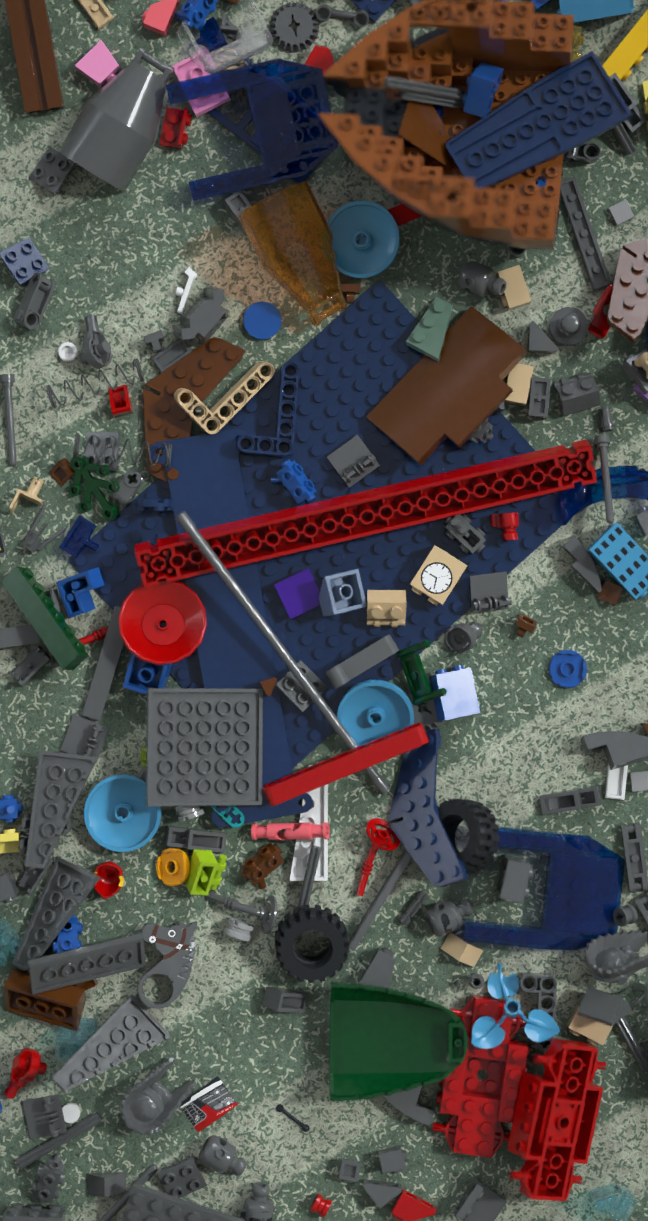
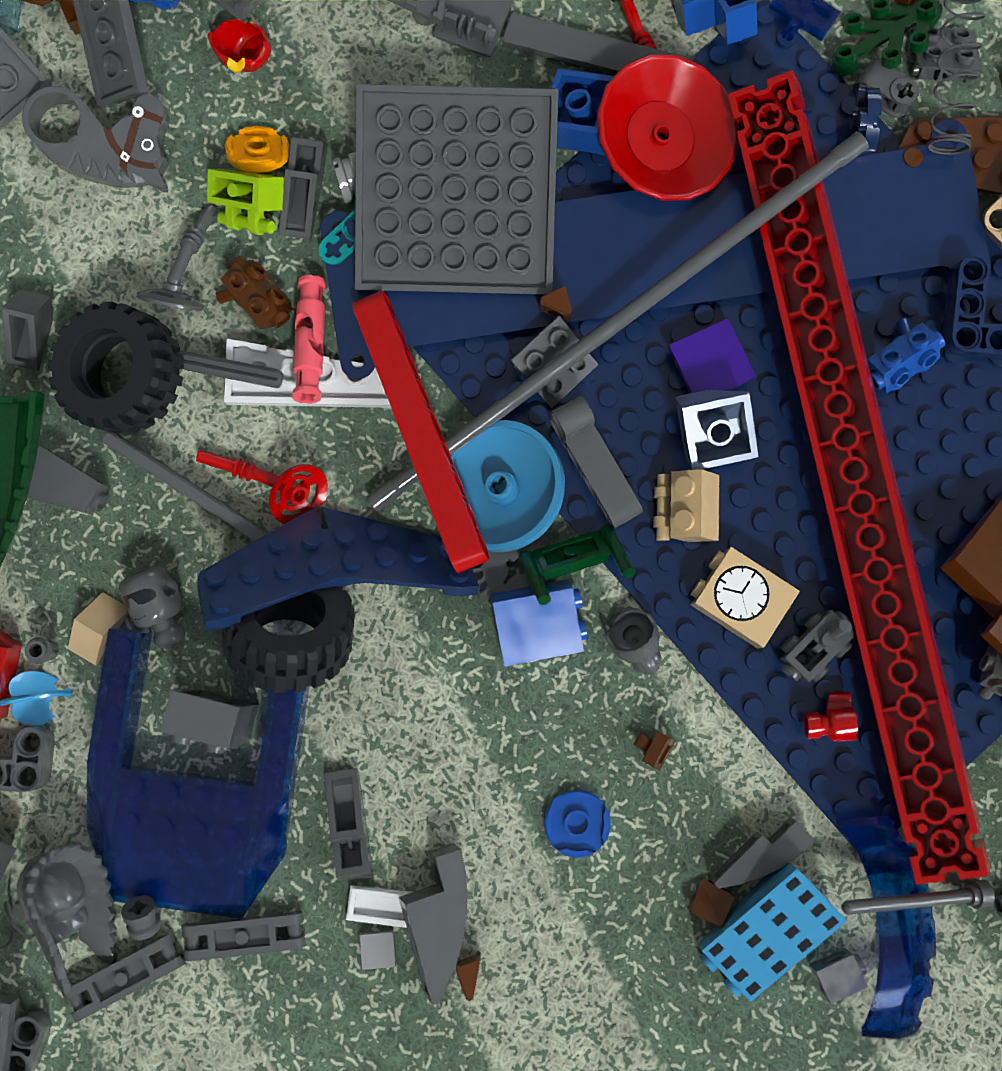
camera: 85 degrees right, 5 degrees down
(119, 814) = (338, 52): dark azure dish -> none
(239, 929) = (148, 254): light grey wheel -> none
(353, 461) = (938, 457): dark grey hinge -> none
(413, 908) = (173, 547): dark grey axle -> none
(489, 592) = (713, 687): dark grey hinge -> none

